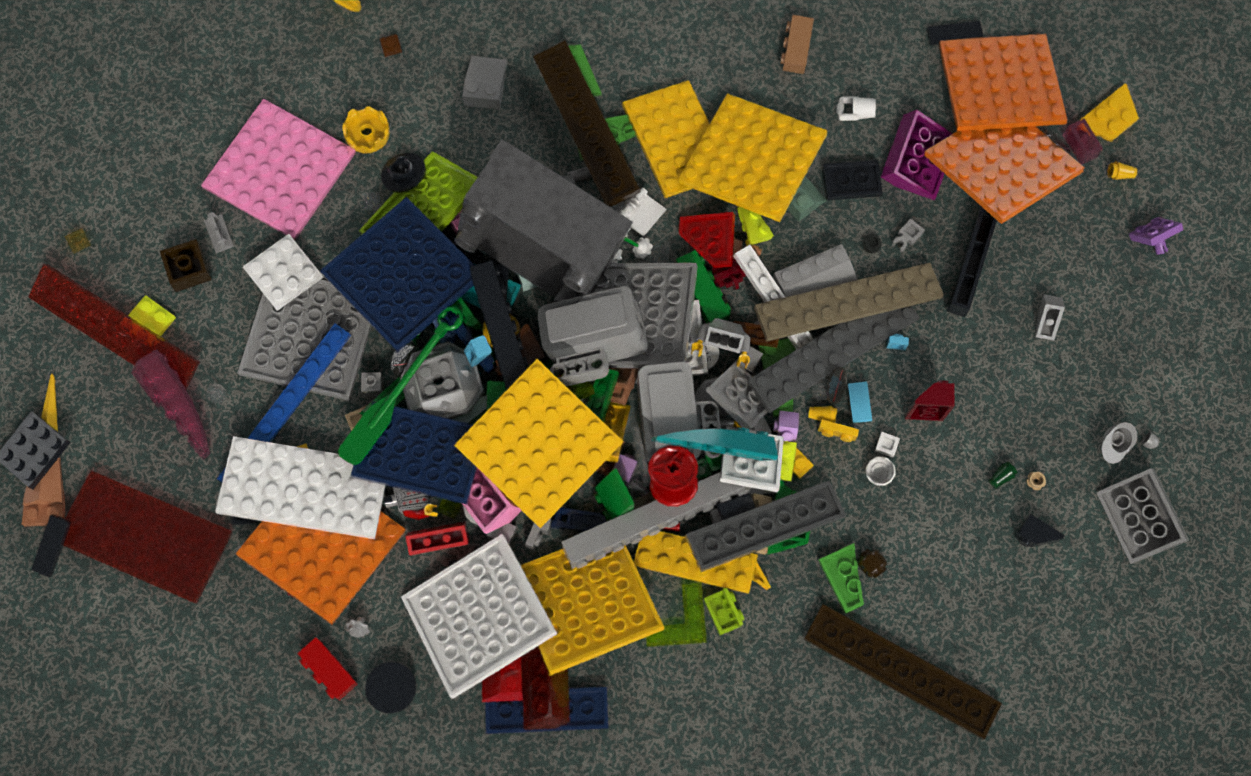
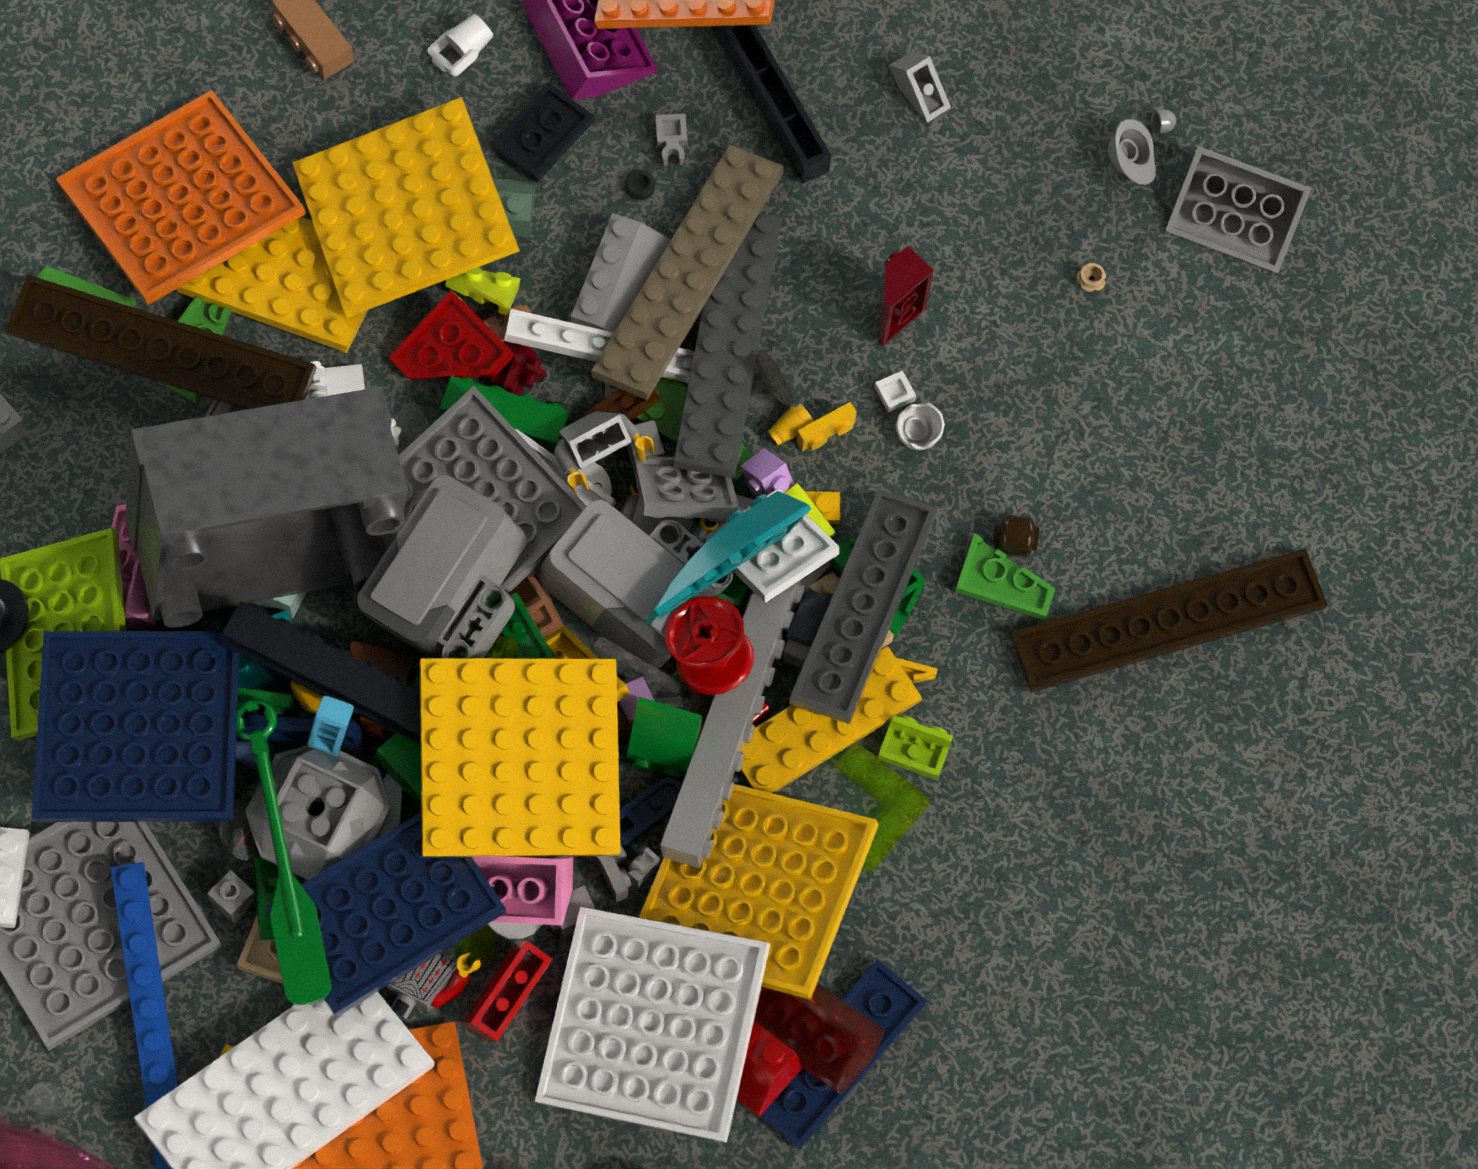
camera: 50 degrees left, 5 degrees down
(550, 544) = (643, 868): none -> light grey plate
(664, 65) = (180, 197): none -> orange plate
(860, 402) = (817, 373): medium azure slope -> none
(898, 342) = (787, 267): medium azure plate -> none
(1003, 474) = (1051, 304): dark green cone -> none
(1037, 533) = (1151, 332): black slope -> none

